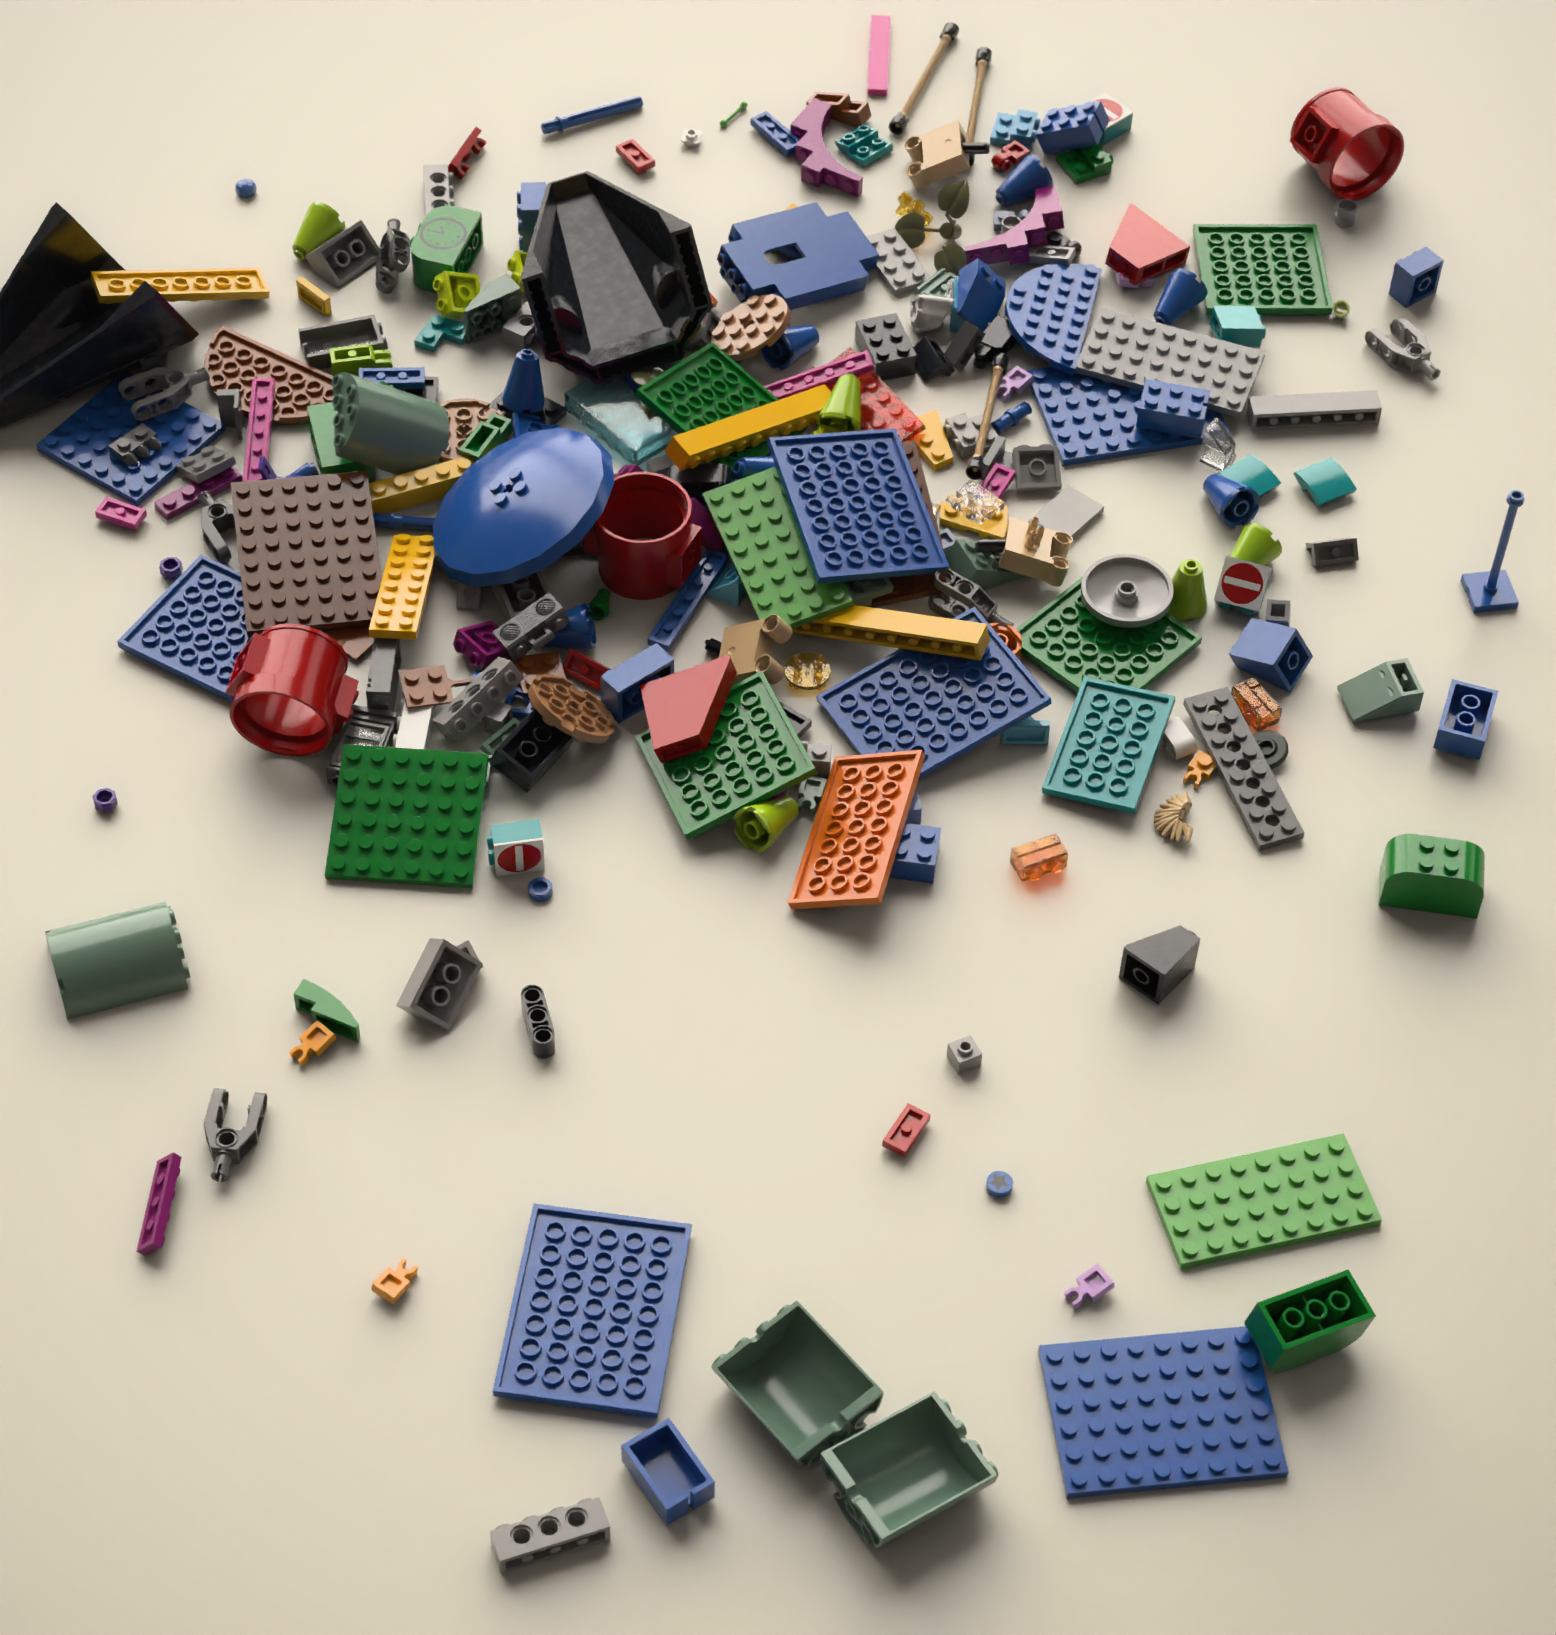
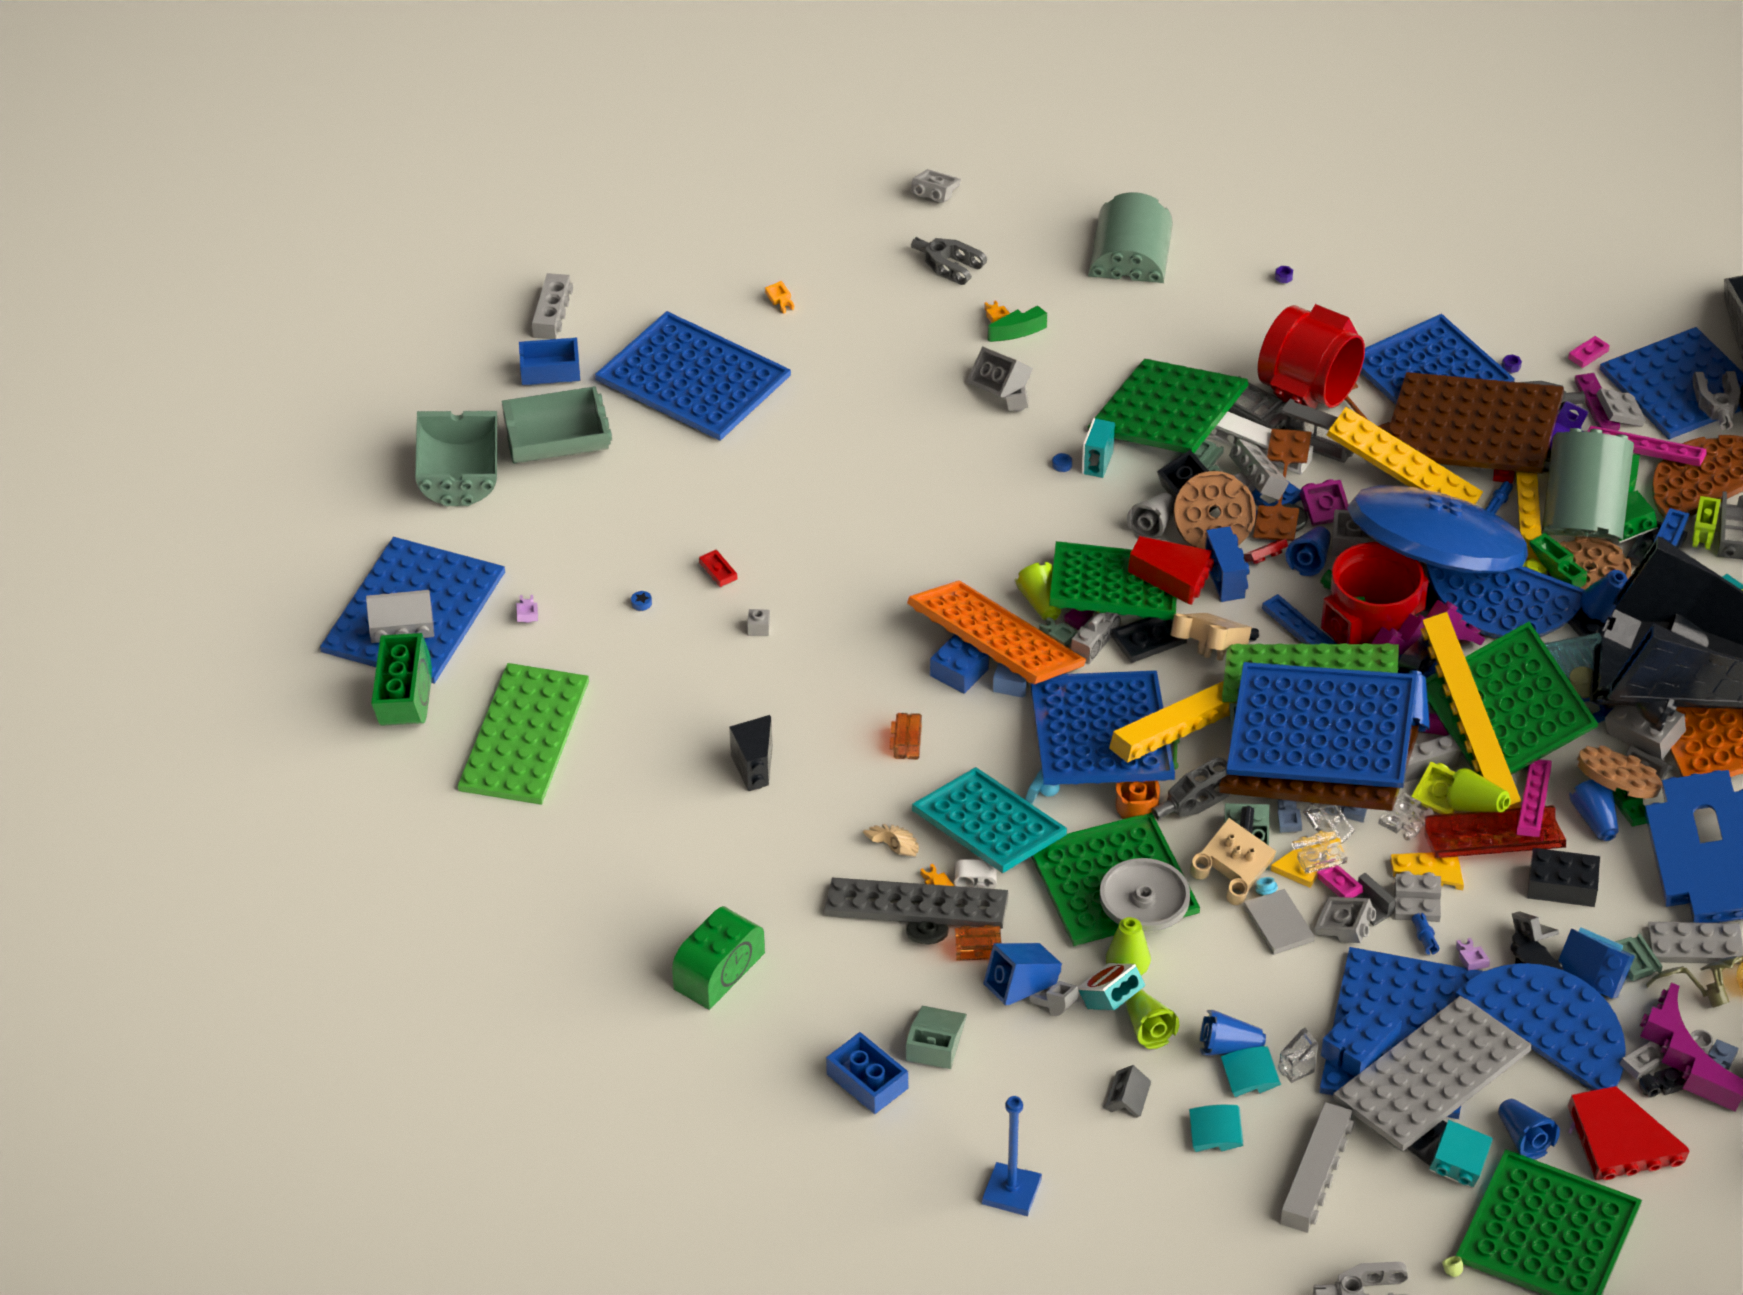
camera: 120 degrees right, 5 degrees down
(88, 1202) = (934, 185): none -> light grey plate
(135, 443) = (1662, 371): dark grey plate -> none
(159, 1204) = (905, 213): magenta plate -> none
(231, 409) = (1670, 428): dark grey panel -> none
(531, 627) = (1310, 510): dark grey piece -> none
(535, 1009) = (939, 418): black beam -> none
(590, 769) = (1151, 516): none -> light grey cone
(807, 663) = (1190, 679): clear yellow plate -> none
(929, 311) = (1598, 918): white piece -> none
(931, 359) = (1544, 909): black panel -> none
(975, 465) = (1499, 952): hose -> none
(1213, 1382) = (400, 614): none -> light grey slope

